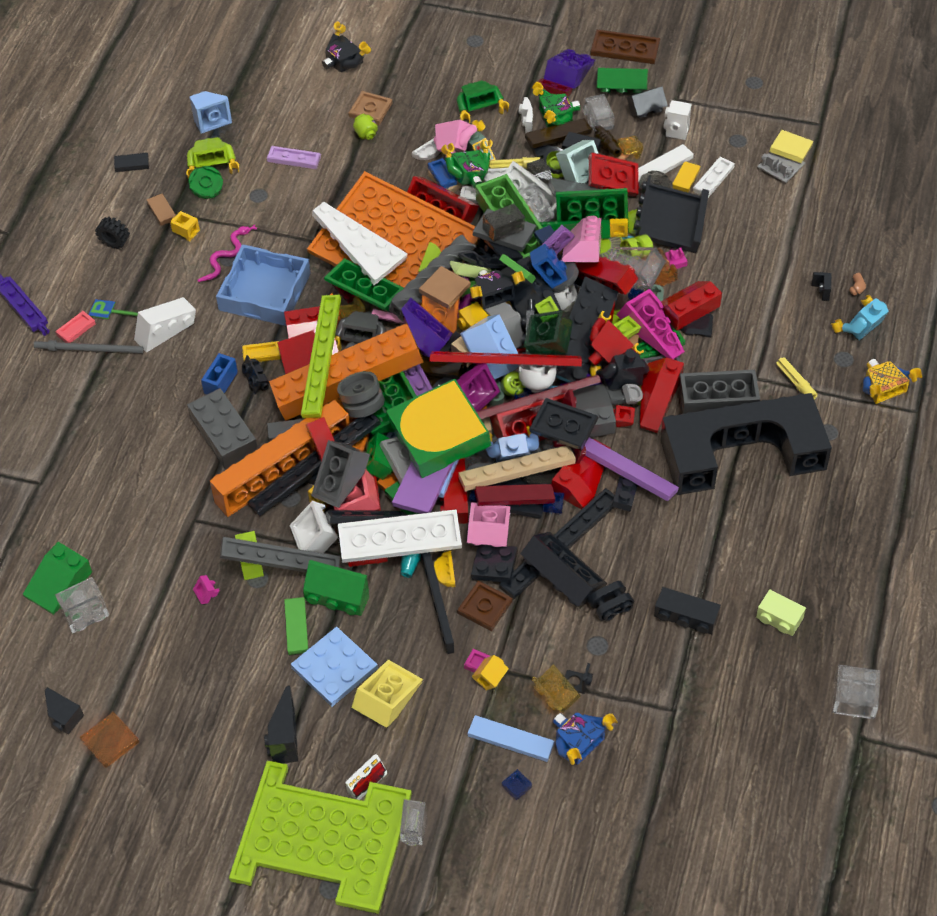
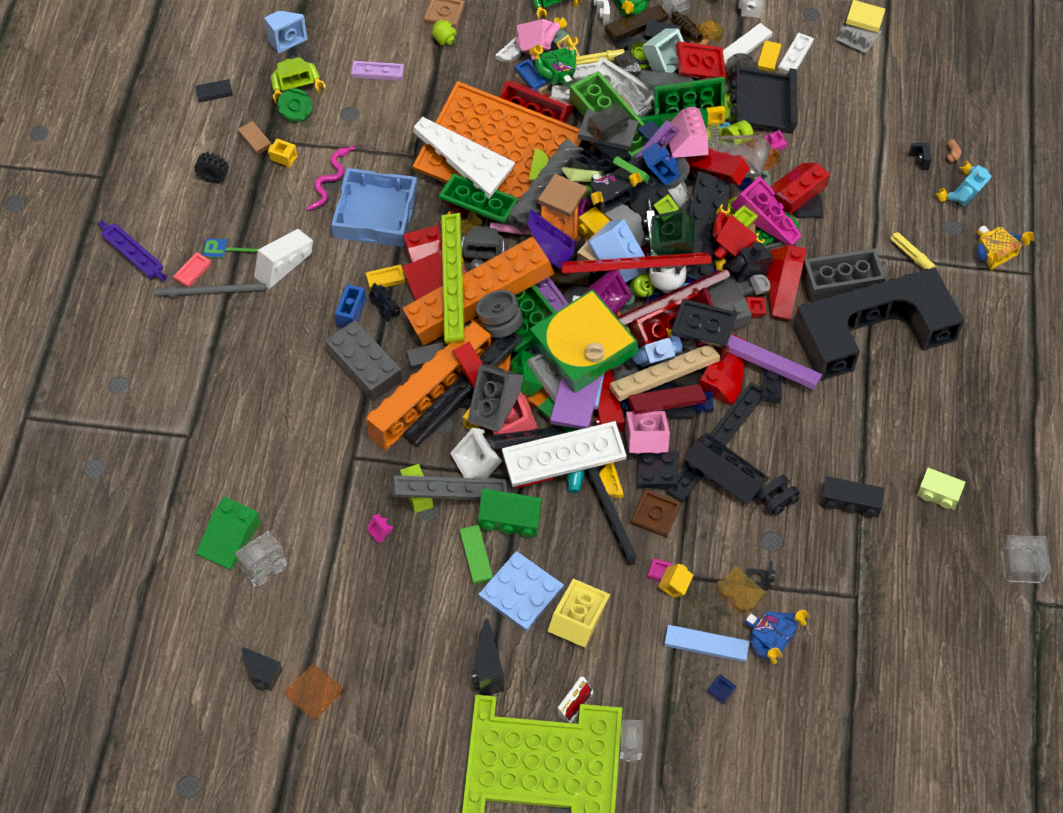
camera: 10 degrees left, 5 degrees up
(443, 438) = (594, 352): none -> tan tile

